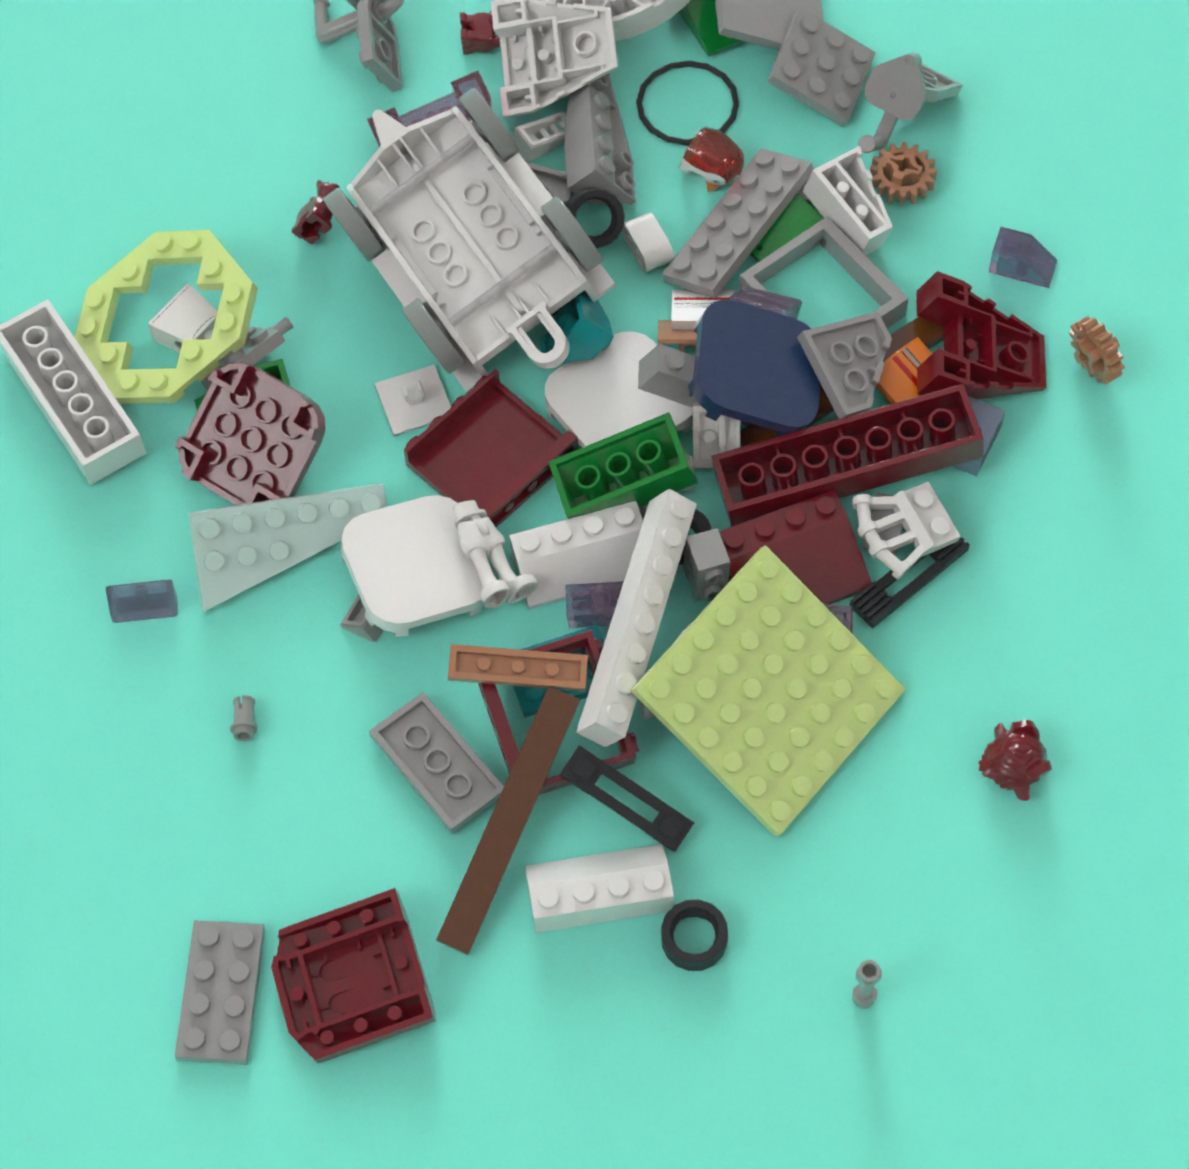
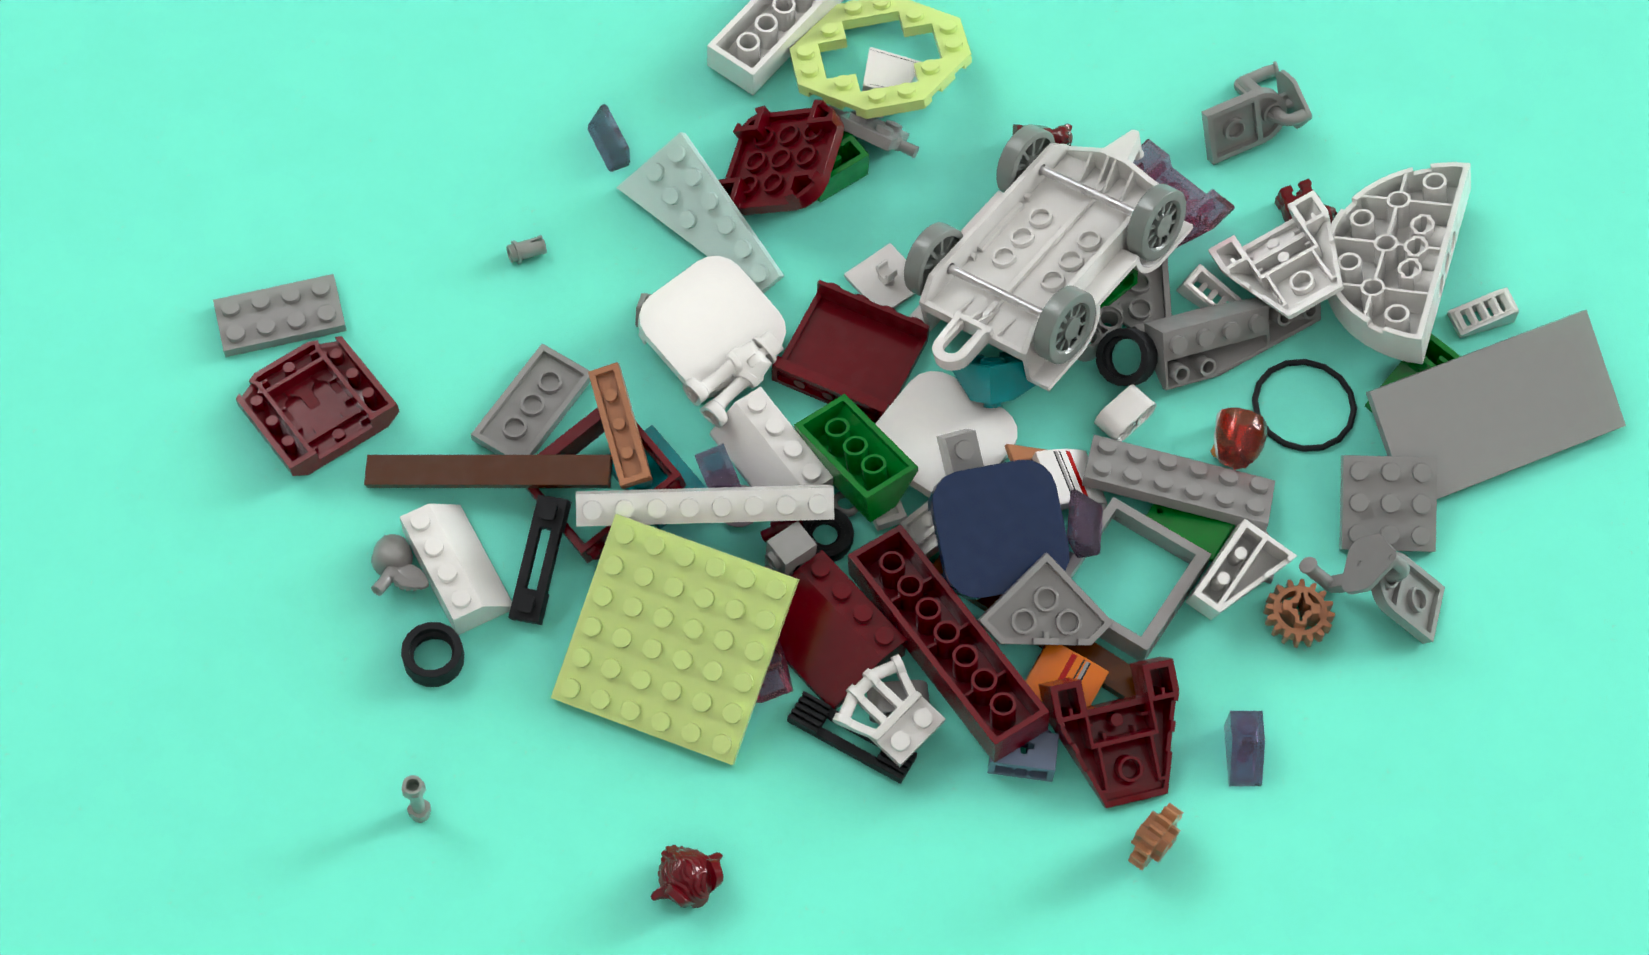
camera: 65 degrees right, 0 degrees up
(569, 946) = (393, 561): none -> light grey piece

